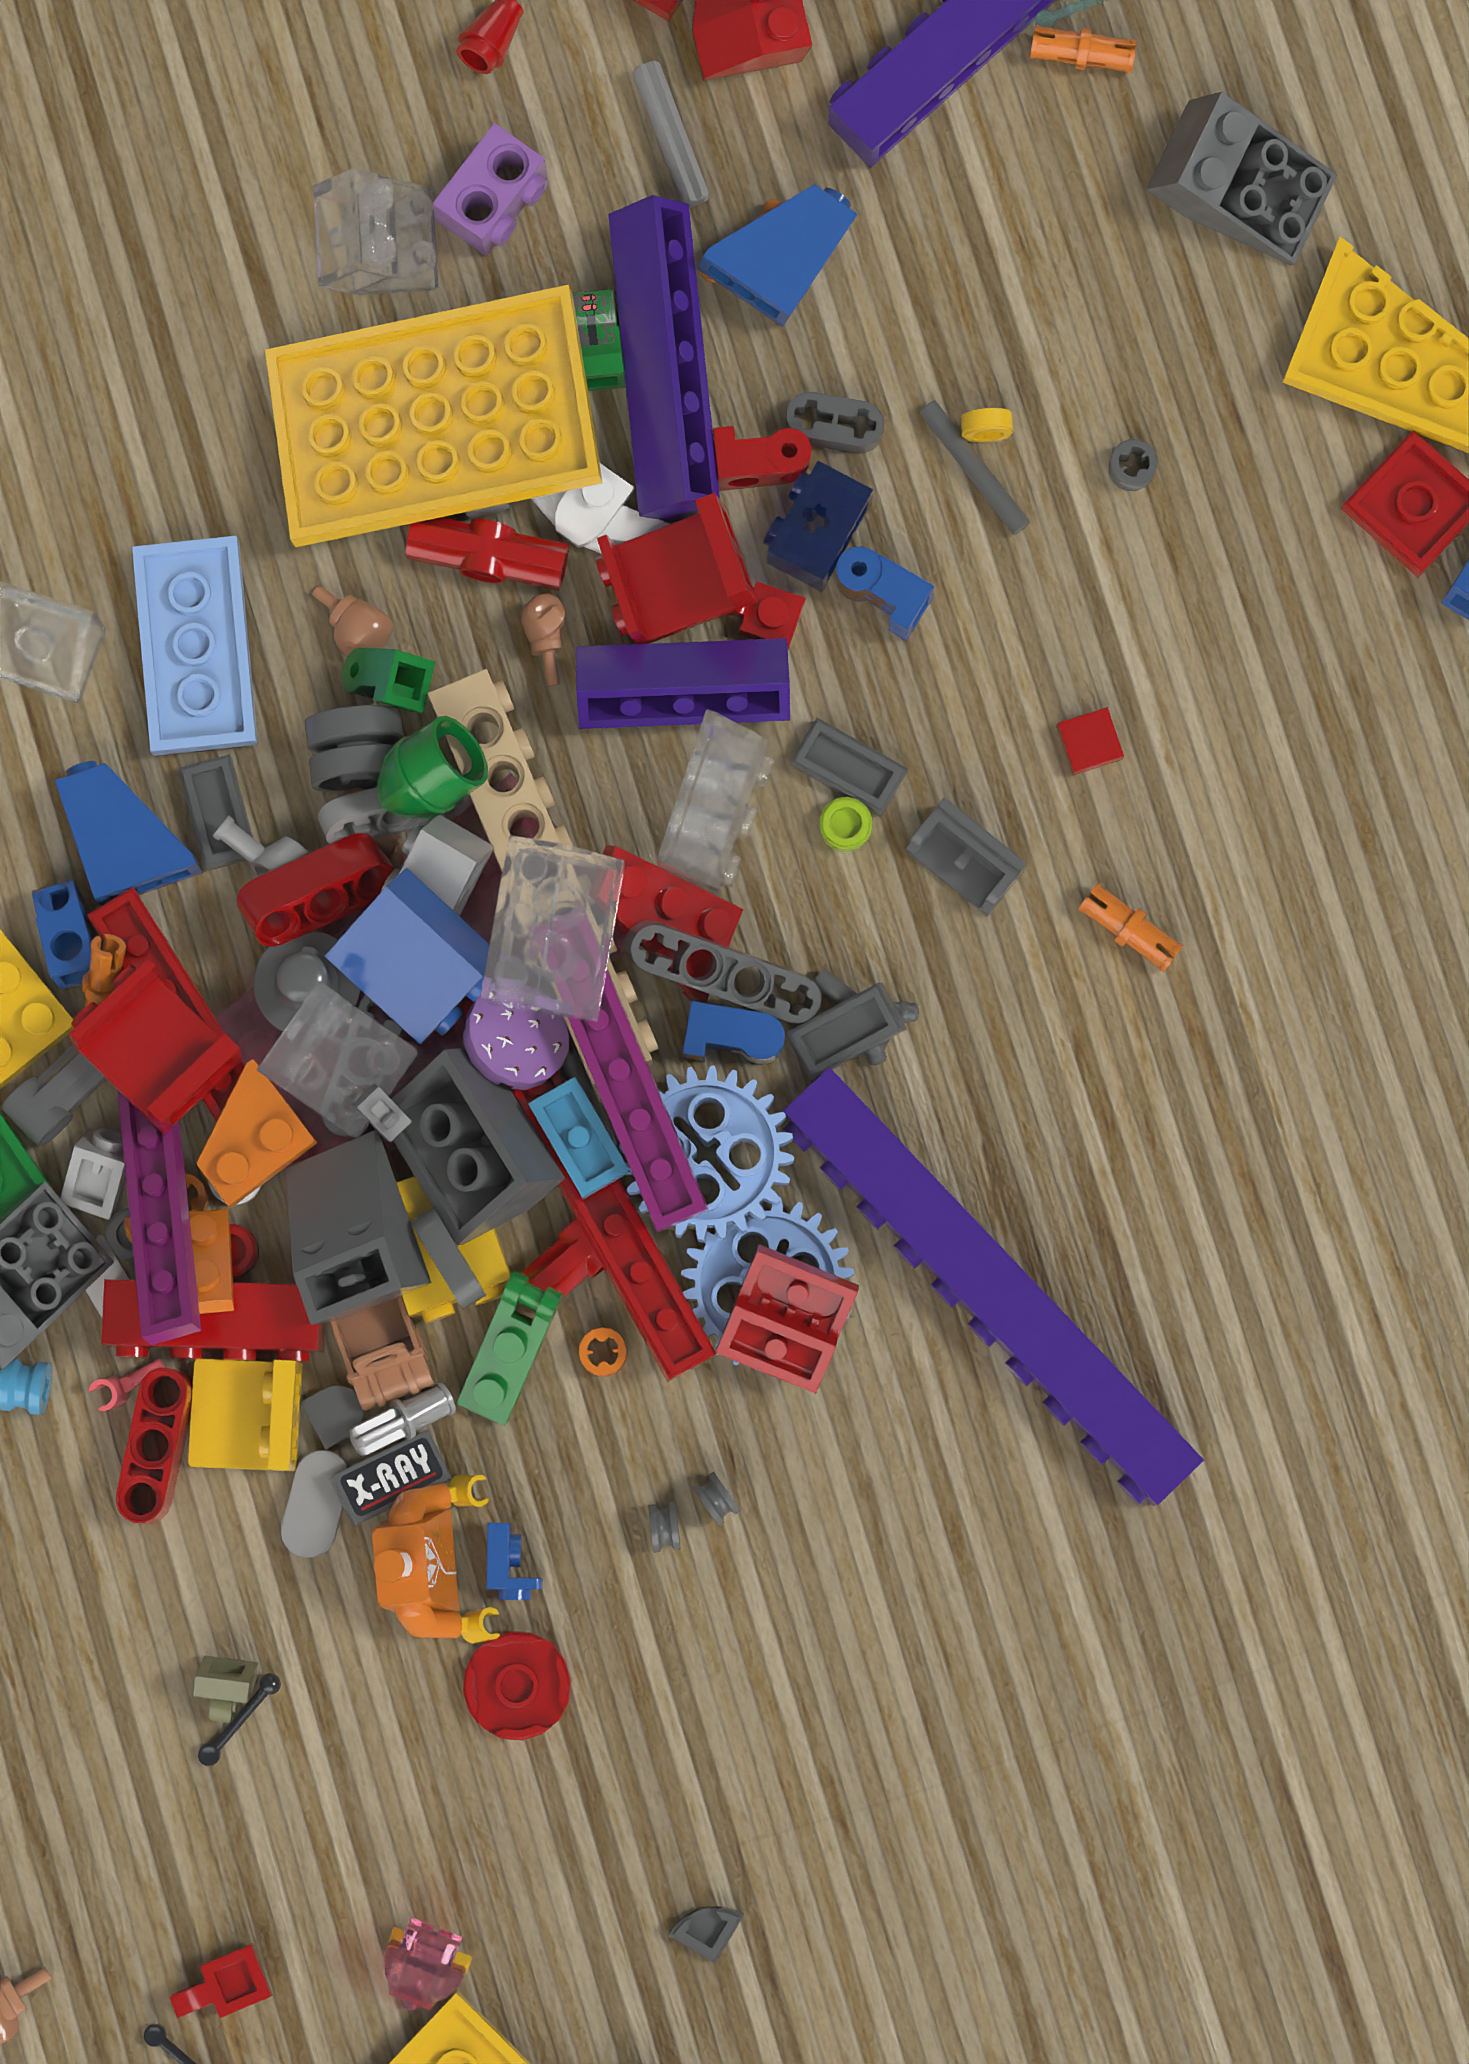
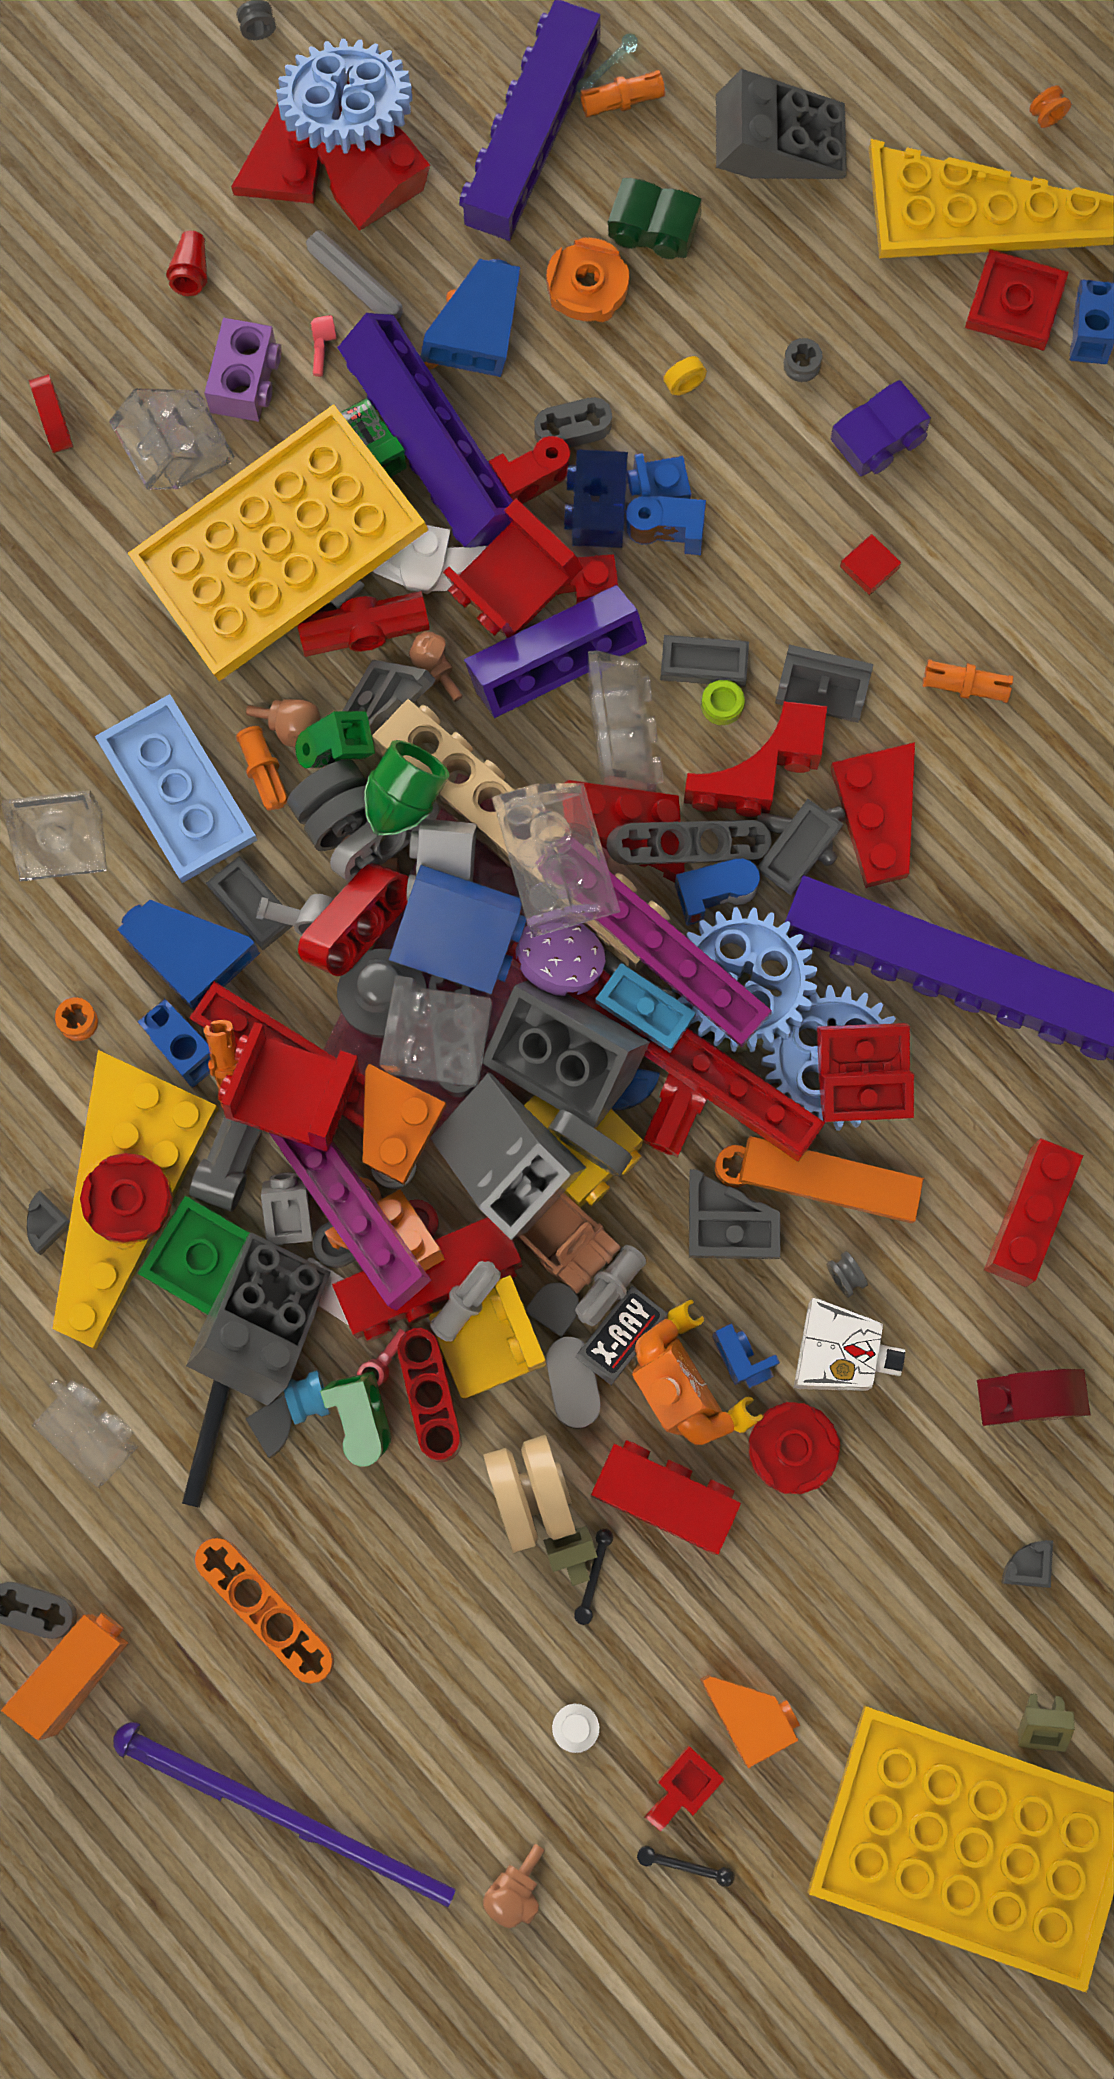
camera: 25 degrees left, 5 degrees down
(71, 1434) = (361, 1416): none -> leg
(143, 1868) = (575, 1728): none -> white plate
(206, 1603) = (530, 1493): none -> tan wheel
(235, 1365) = (465, 1300): none -> light grey axle
(255, 145) = (51, 413): none -> red beam
(300, 666) = (262, 767): none -> orange axle
(330, 1947) = (752, 1719): none -> orange slope
(353, 1673) = (666, 1497): none -> red brick
(382, 1112) = (488, 1055): flat silver piece -> none
(423, 1964) = (830, 1696): clear pink piece -> none
(468, 644) = (385, 689): none -> dark grey wing
(509, 1349) = (666, 1195): plate -> none
(540, 1218) = (638, 1090): none -> blue tile
(565, 1410) = (729, 1223): none -> dark grey wing
(604, 182) = (322, 330): none -> coral hand
(618, 1607) = (843, 1350): none -> white torso
(699, 1419) = (832, 1181): none -> orange tile
(716, 1498) = (875, 1234): dark grey bush -> none
(798, 1755) = (1033, 1396): none -> dark red brick
(827, 936) = (750, 785): none -> red arch
(898, 1556) = (1033, 1212): none -> red brick
(899, 534) = (659, 478): none -> blue bracket
(931, 229) = (593, 301): none -> orange plate
(956, 1028) = (878, 810): none -> red wing
(974, 467) = (689, 411): dark grey bar -> none
(1043, 220) = (654, 218): none -> dark green brick
(1178, 590) = (880, 429): none -> dark purple brick

